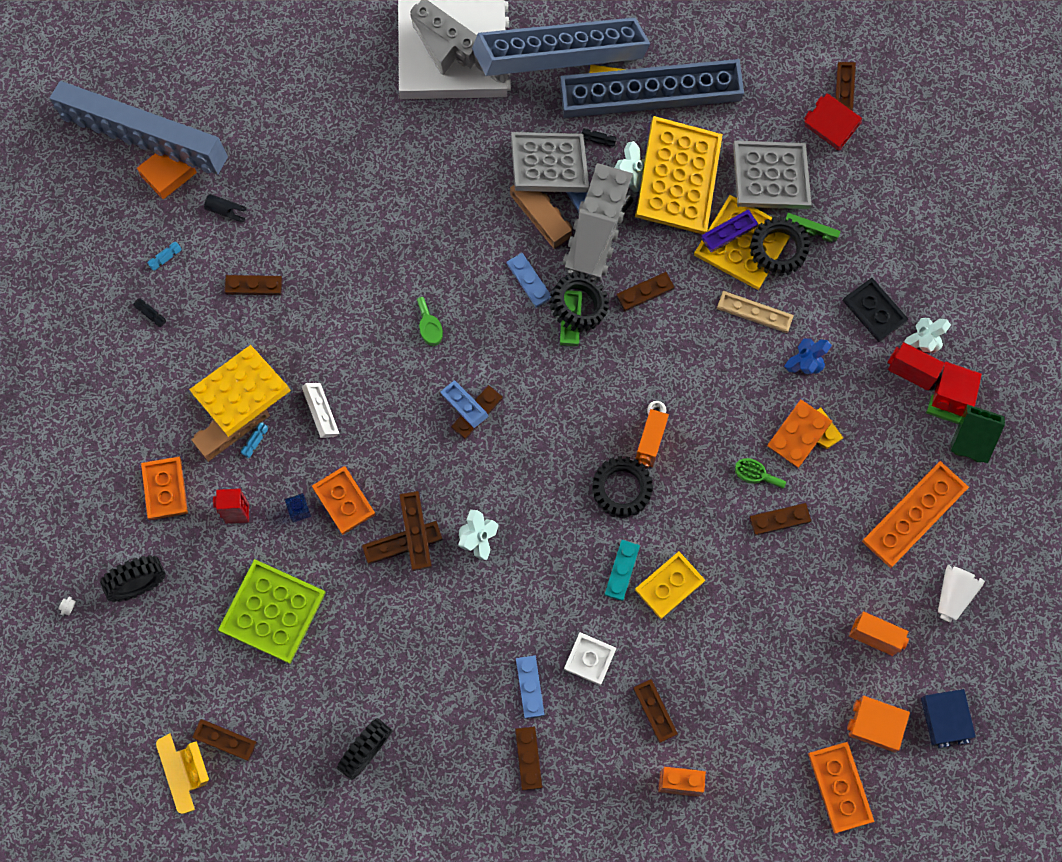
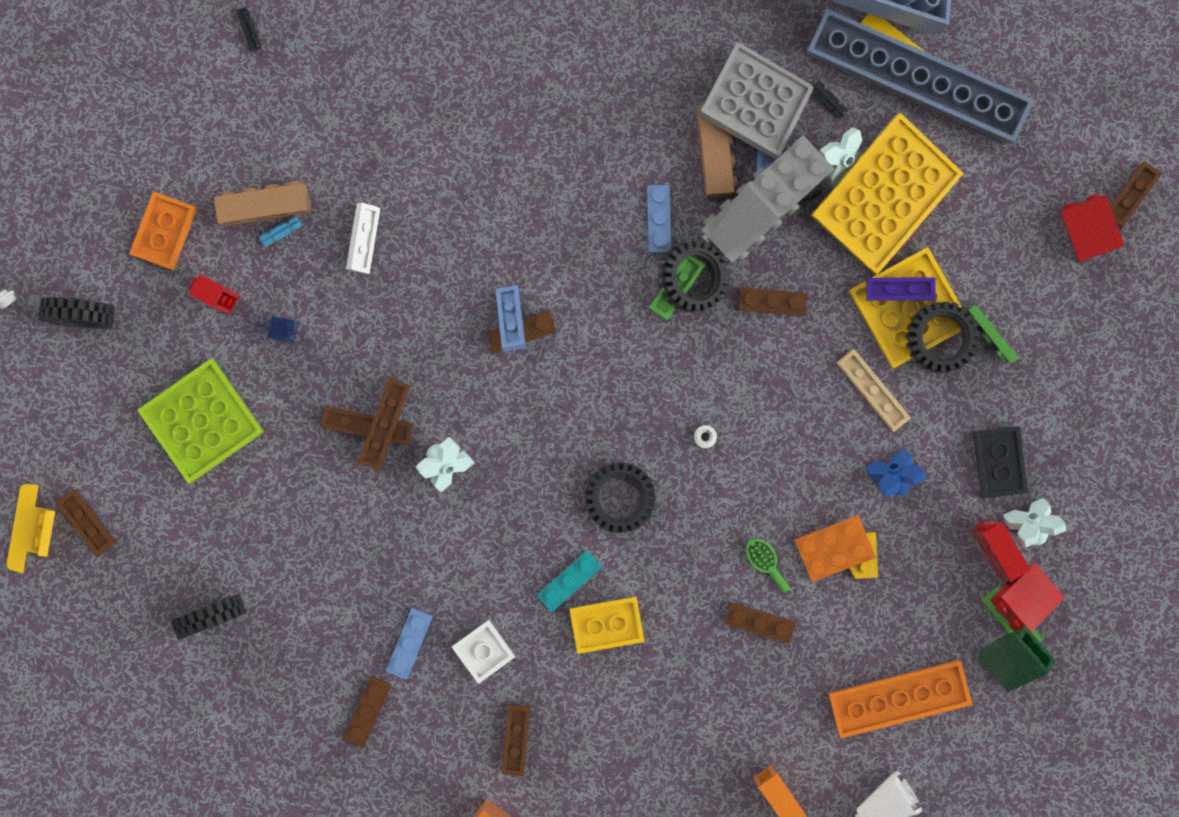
camera: 30 degrees right, 15 degrees up
(239, 390) = (291, 171): yellow plate -> none
(253, 285) = (371, 59): reddish brown plate -> none
(343, 500) = (333, 347): orange plate -> none
(429, 325) = (525, 211): bright green piece -> none
(651, 438) = (678, 467): orange brick -> none
(771, 175) = (987, 250): light grey plate -> none

